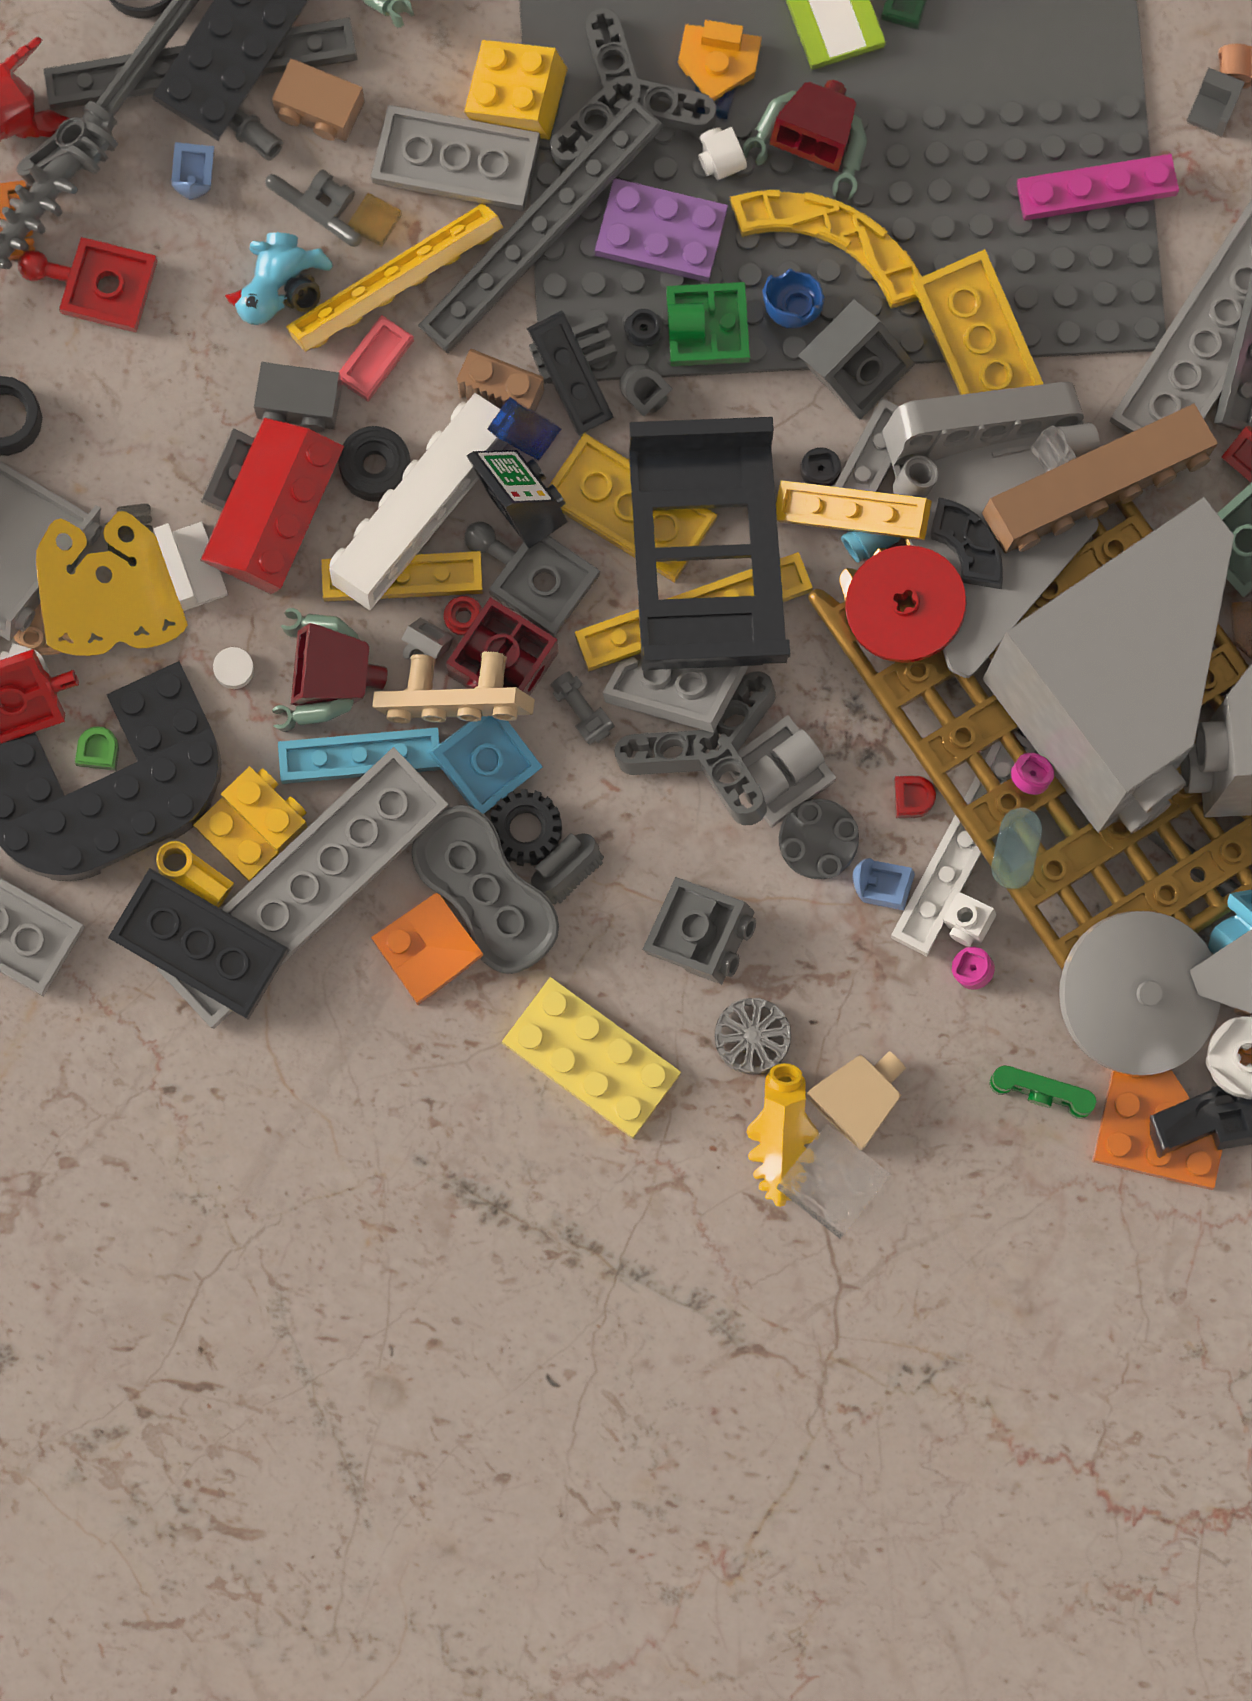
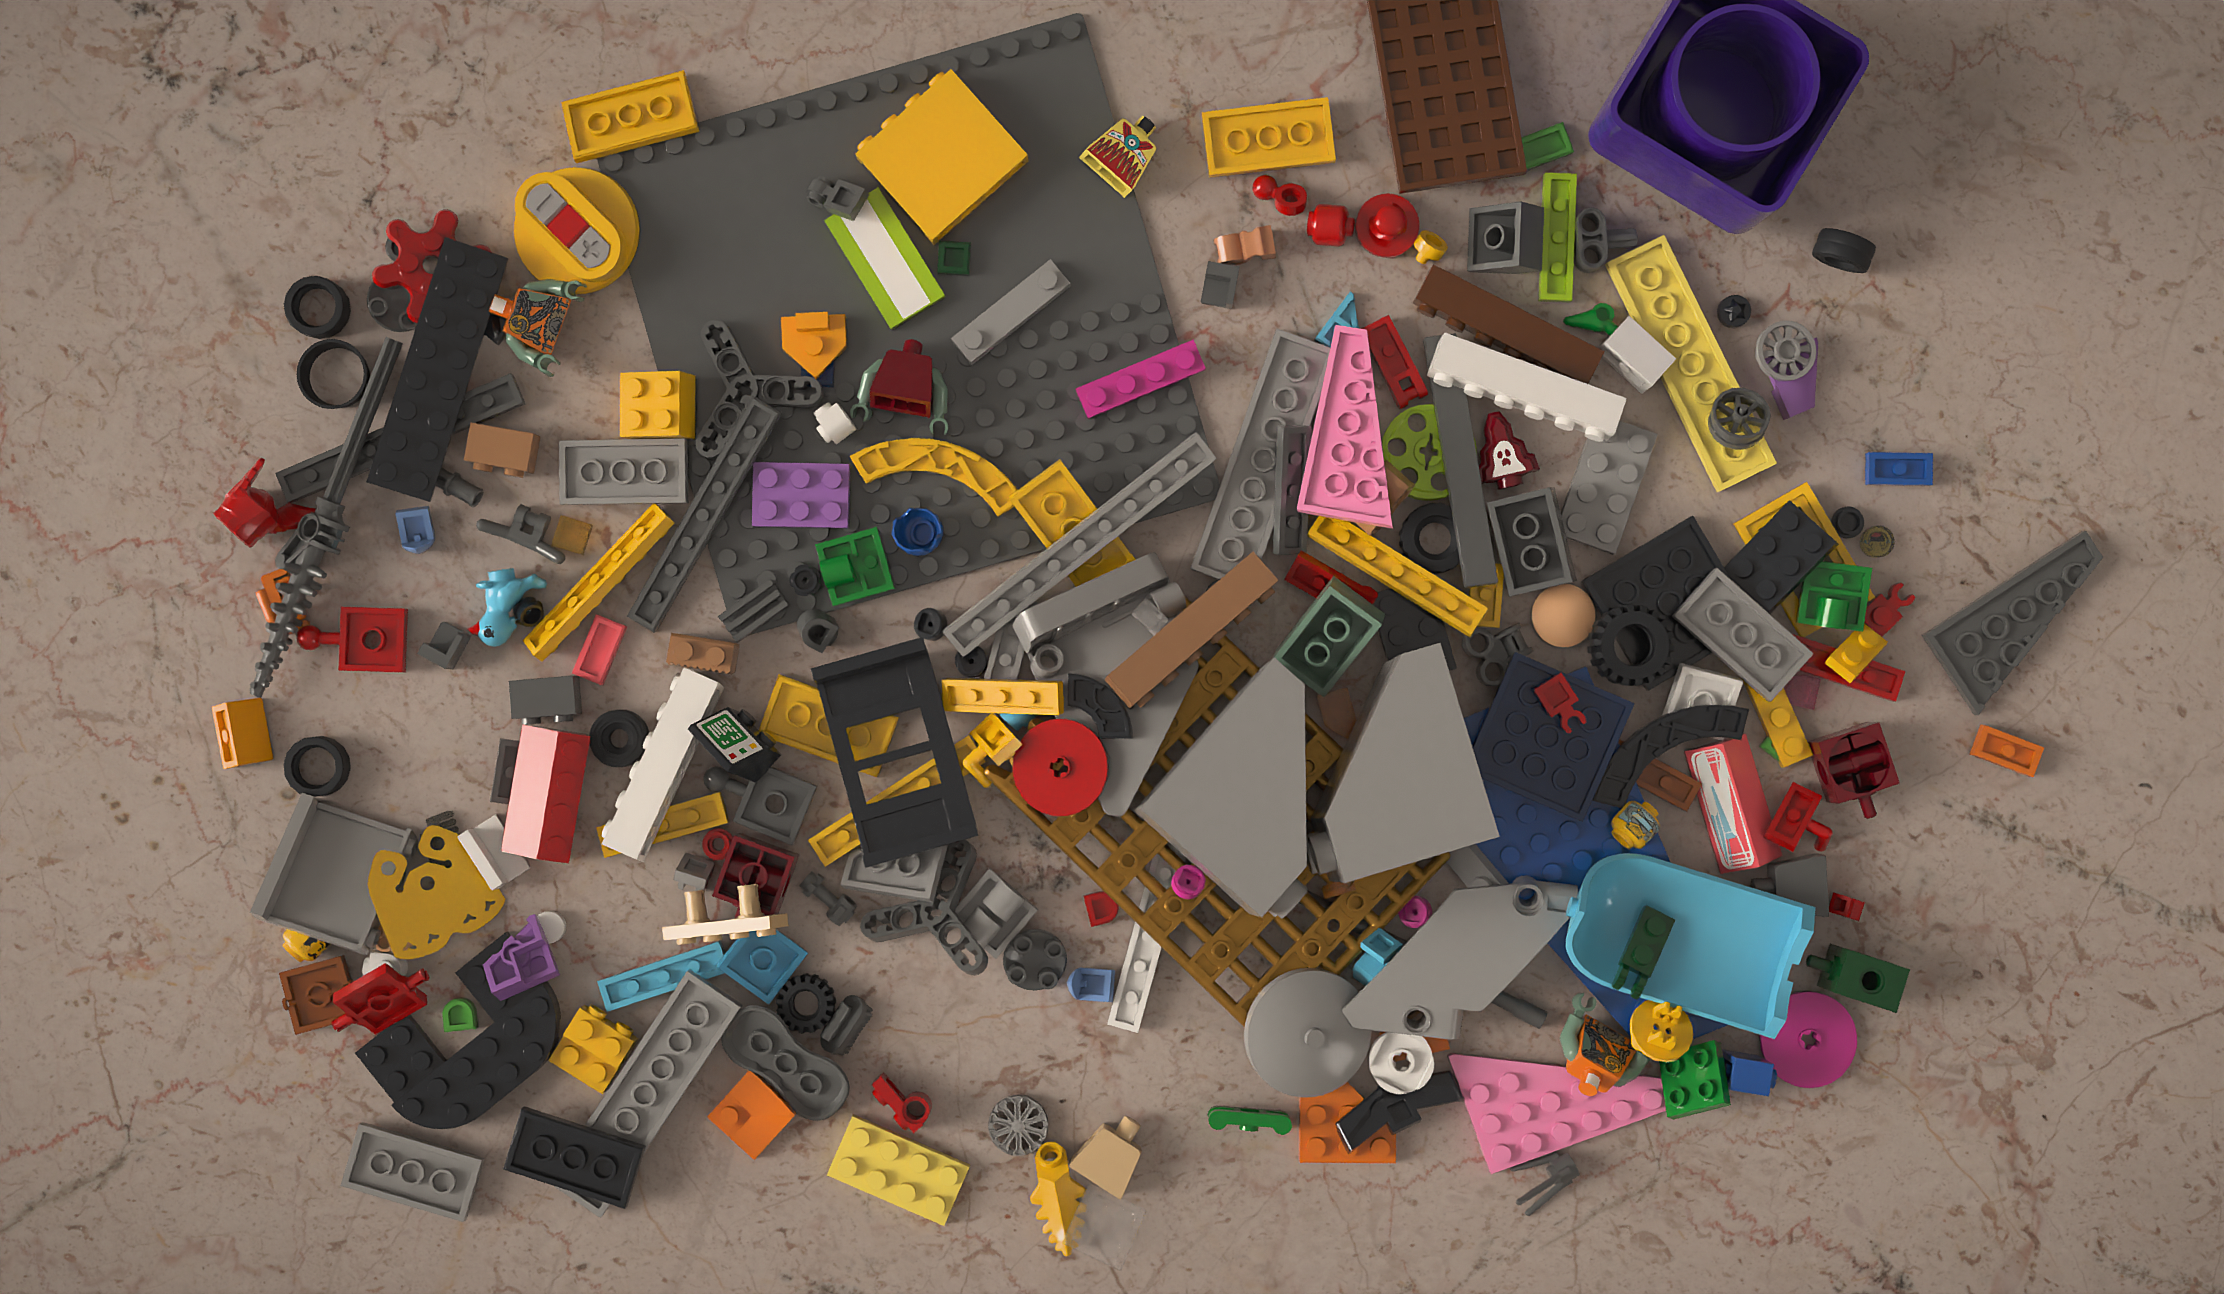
camera: 10 degrees left, 10 degrees up
(192, 696) = (521, 962): none -> medium lavender slope
(193, 312) = (445, 646): none -> dark grey panel
(195, 875) = (561, 1101): yellow piece -> none
(328, 670) = (622, 916): dark red torso -> none
(524, 428) = (729, 689): clear blue tile -> none
(570, 372) = (755, 633): black tile -> none
(601, 958) = (888, 1093): none -> red plate
(700, 930) = (959, 1055): dark grey plate -> none
(785, 413) = (930, 624): none -> black tile
(828, 559) = (994, 741): none -> yellow plate
(857, 359) = (976, 566): dark grey slope -> none
(959, 78) = (1011, 312): none -> light grey plate
(968, 919) = (1164, 999): white plate -> none
(973, 968) = (1175, 1034): dark pink tile -> none
(986, 351) = (1079, 544): none -> light grey plate
(1016, 848) = (1188, 943): clear light blue tile -> none
(1216, 822) = (1336, 888): none -> clear orange tile

